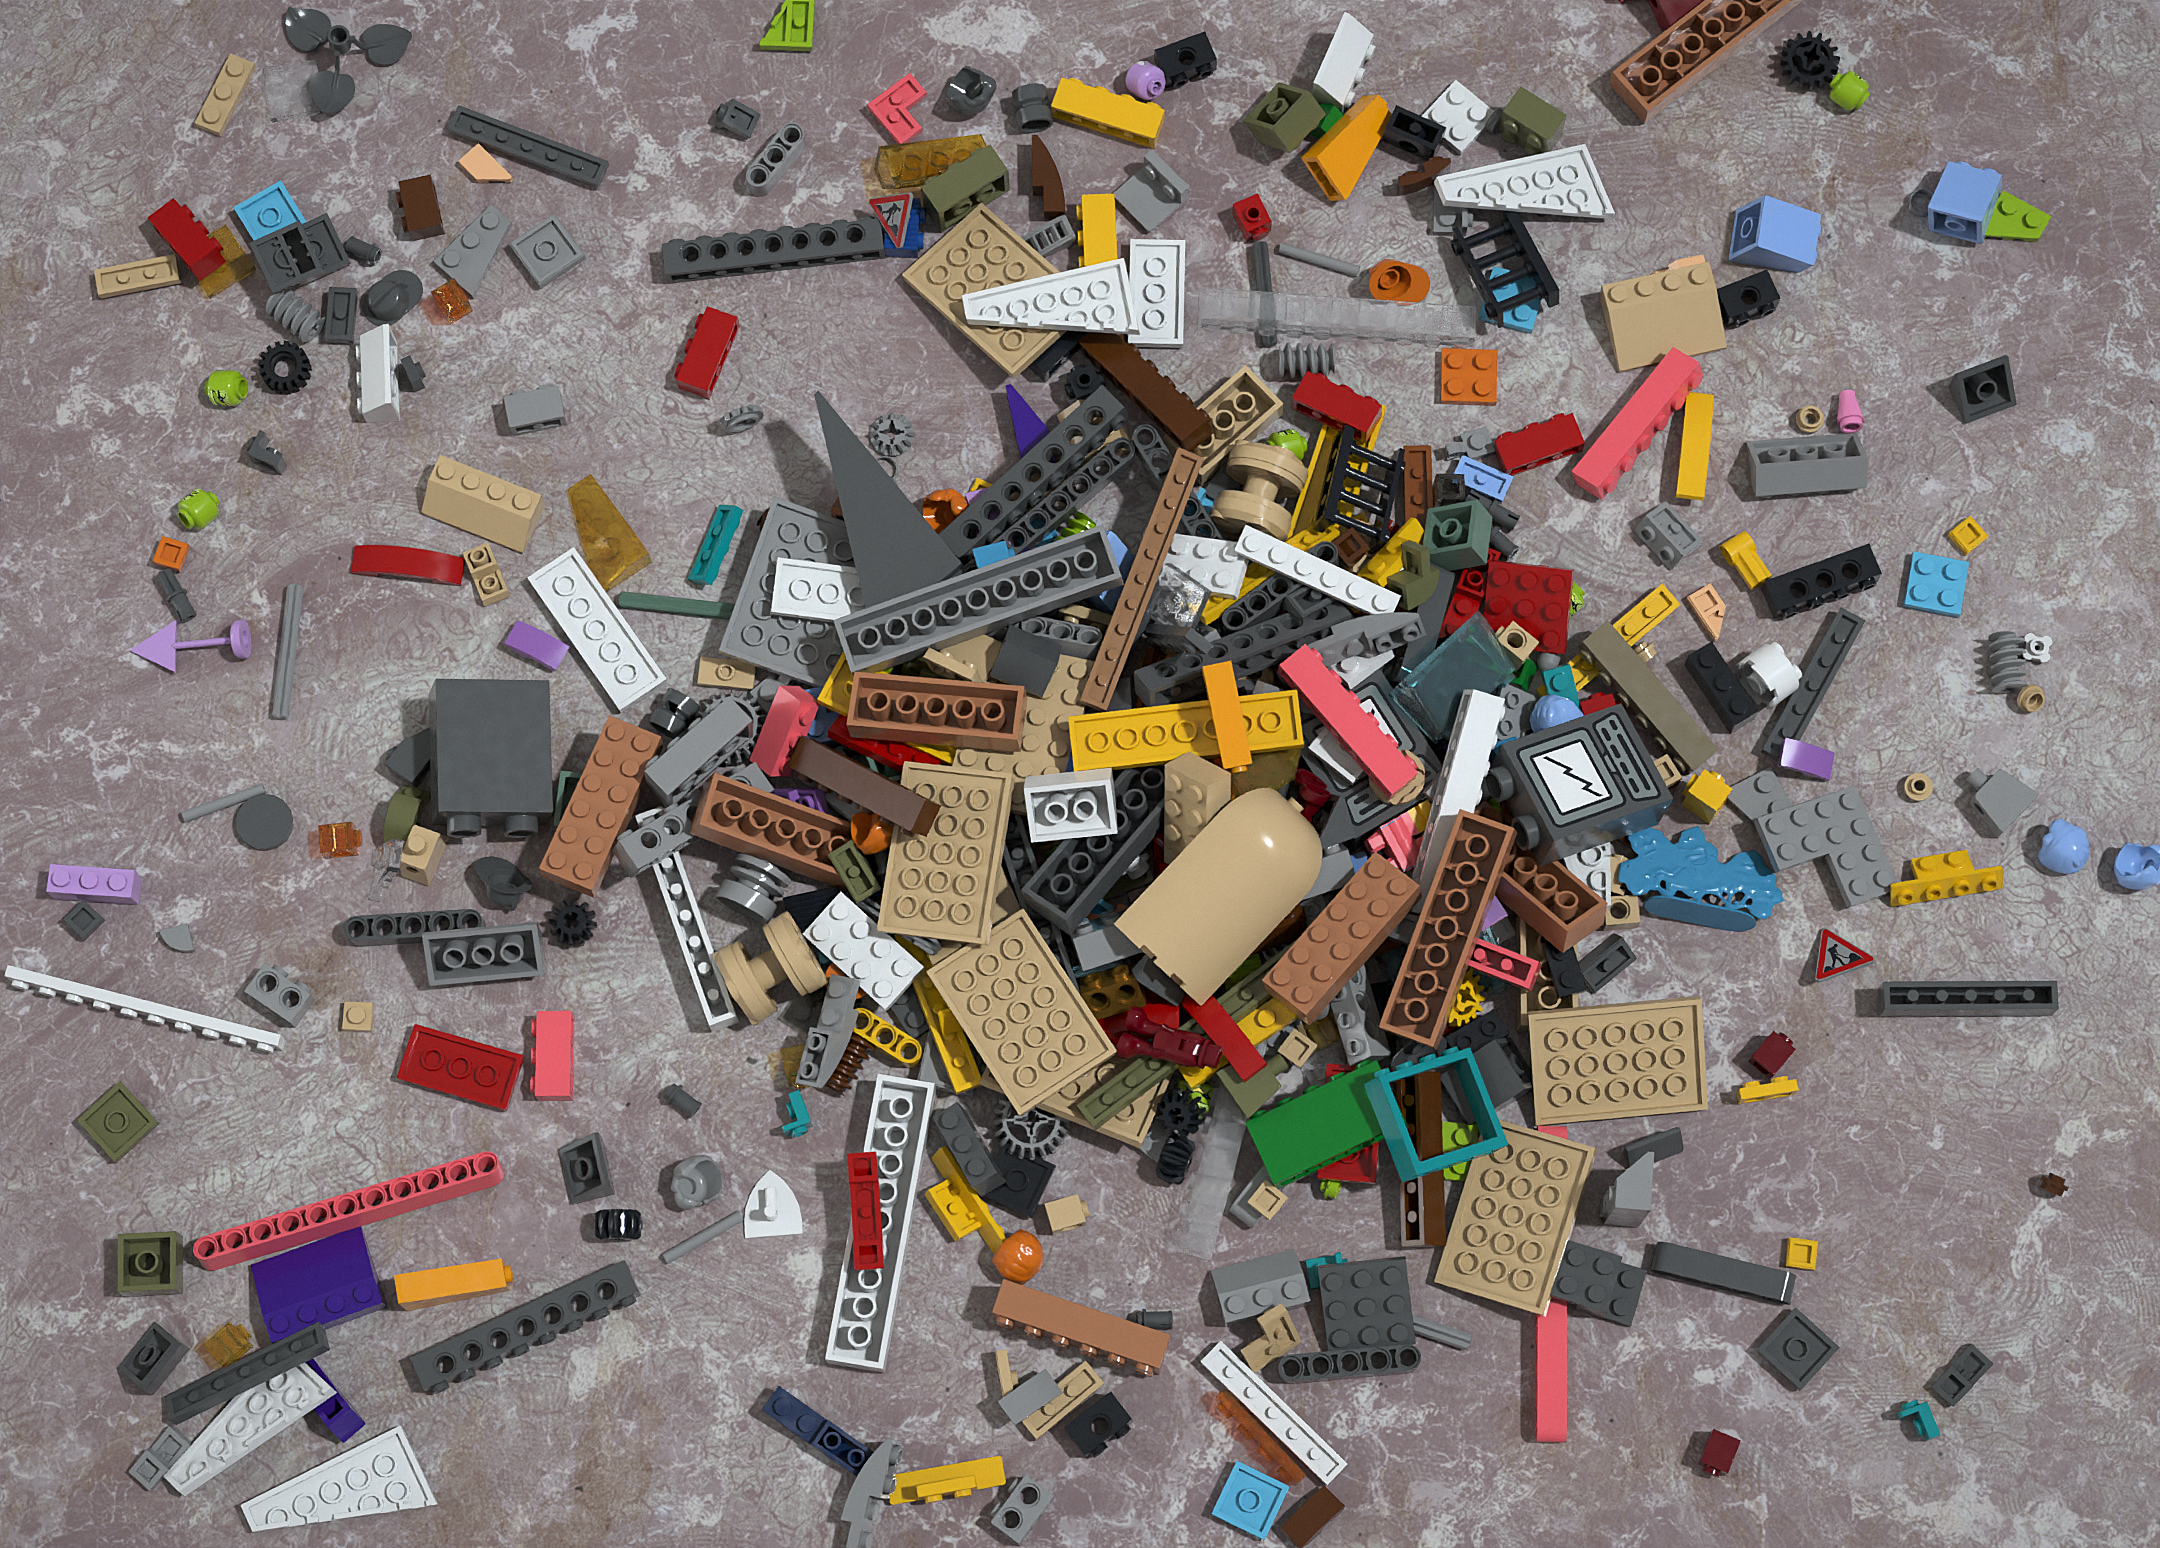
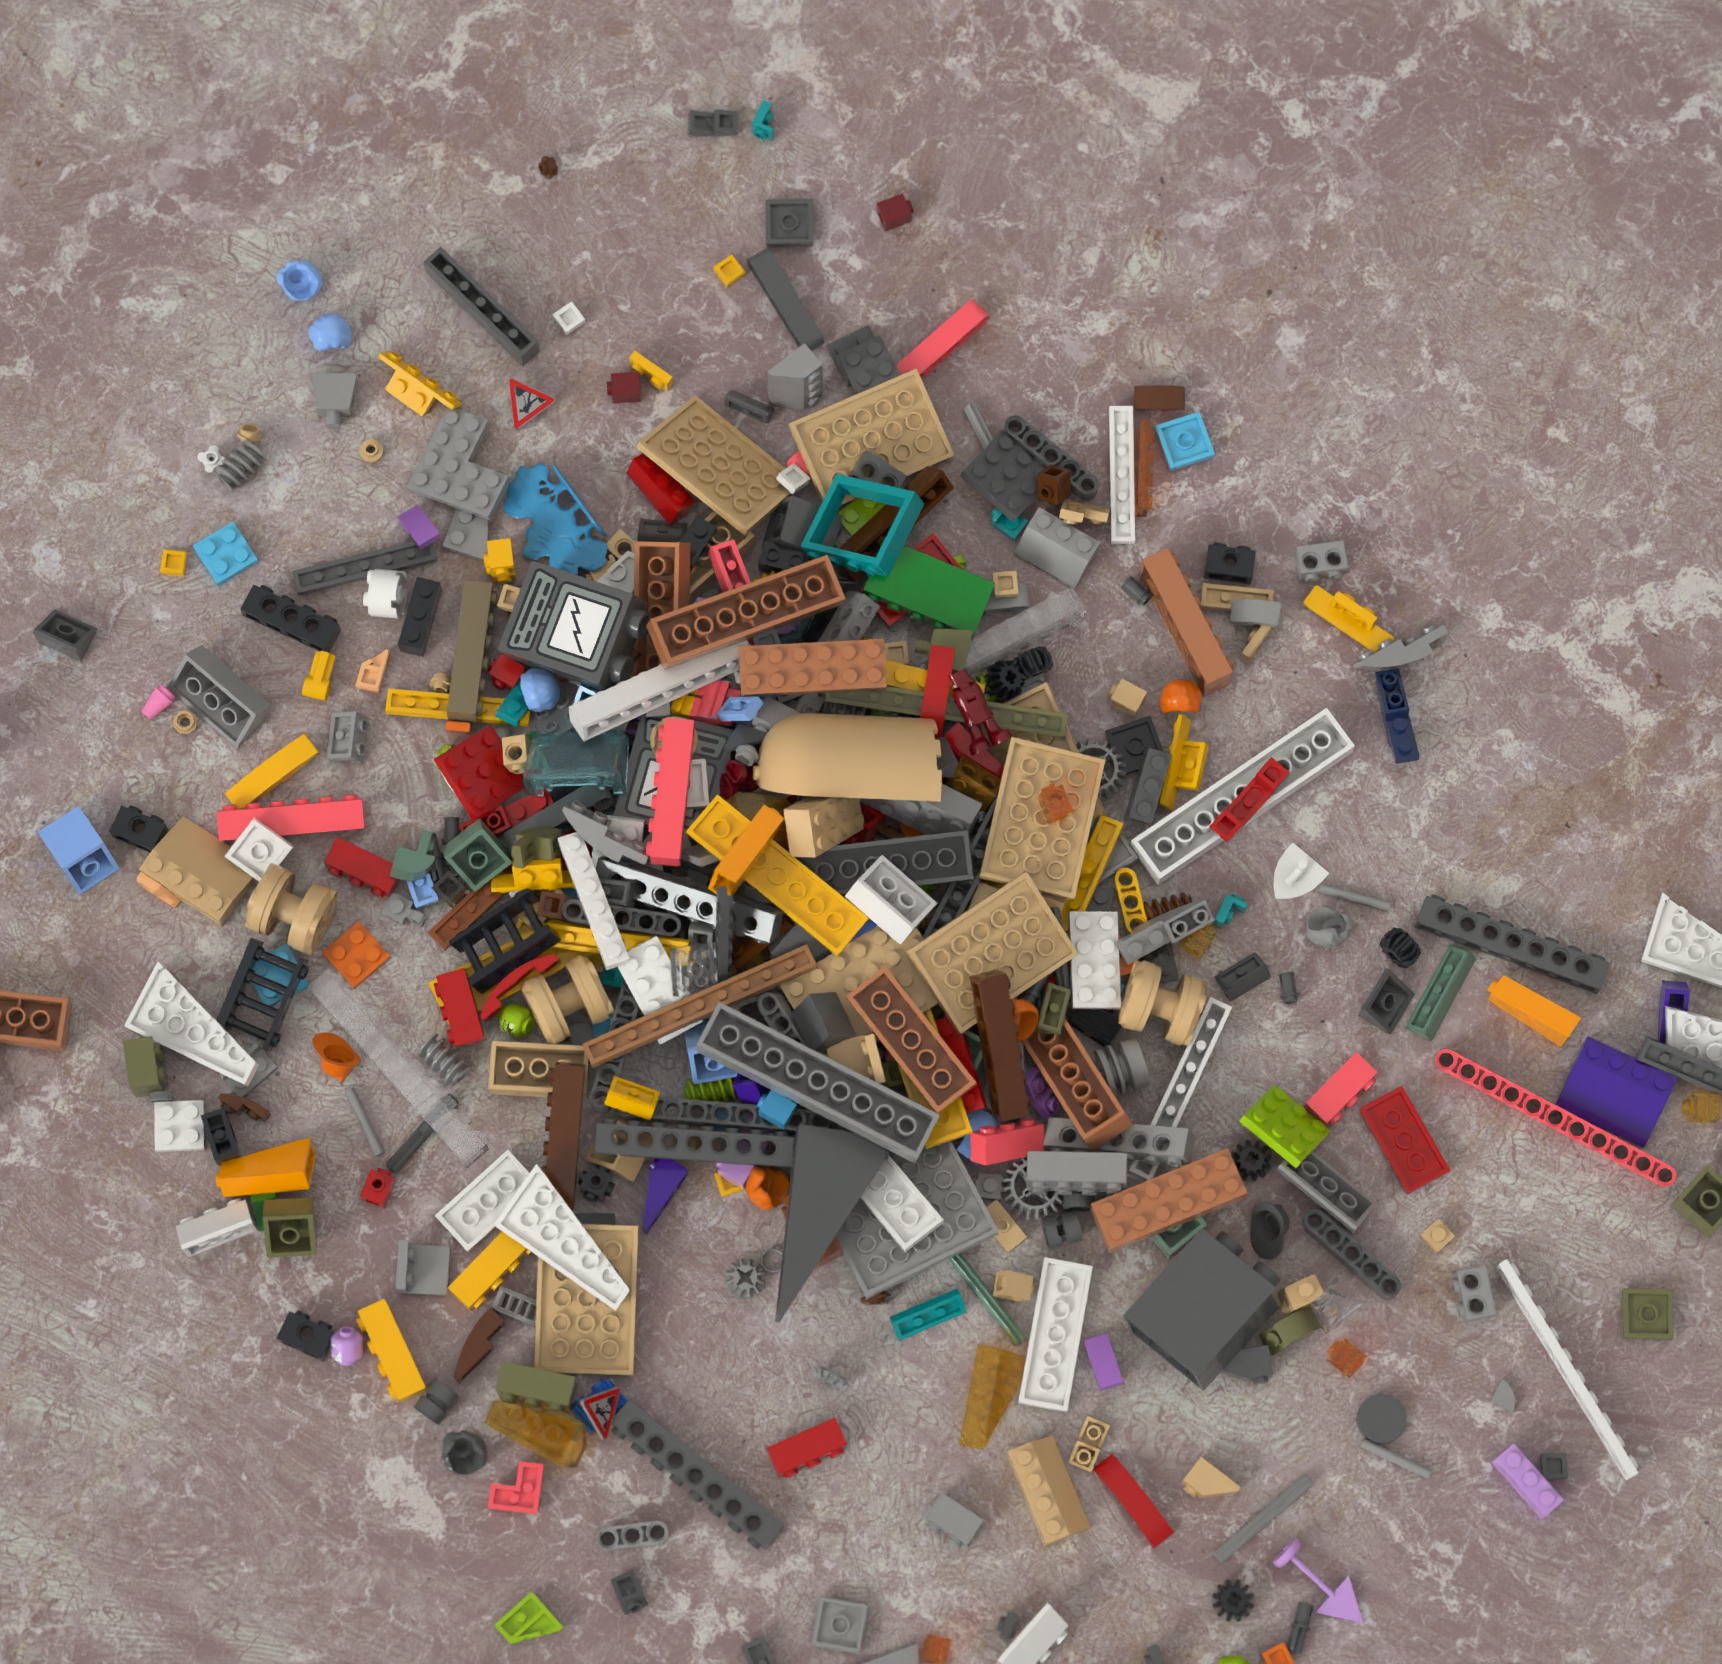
camera: 140 degrees left, 0 degrees up
(257, 570) = (1225, 1595): none -> black gear
(358, 634) = (1208, 1481): none -> tan slope
(550, 1227) = (1440, 992): none -> sand green slope
(568, 971) = (1285, 1126): none -> lime plate
(667, 630) = (1013, 1286): none -> tan brick
(732, 1074) = (1243, 976): none -> dark grey slope
(1009, 1021) = (1051, 813): none -> clear orange brick
(1120, 458) = (632, 1098): none -> yellow slope
(1310, 496) = (493, 1005): none -> red slope
(1318, 810) = (747, 754): none -> light grey plate
(1318, 1334) = (1054, 484): none -> reddish brown brick
(1362, 845) = (740, 709): none -> light blue plate
(1475, 1191) = (879, 470): none -> dark grey brick
(1497, 476) = (412, 864): none -> sand green brick
(1544, 1113) = (793, 478): none -> white plate
(1572, 340) = (274, 902): none -> tan piece
(1587, 628) = (458, 727): none -> orange tile
(1630, 989) = (660, 489): none -> red brick
(1632, 368) = (257, 849): none -> white plate
(1886, 1068) = (569, 318): none -> white plate

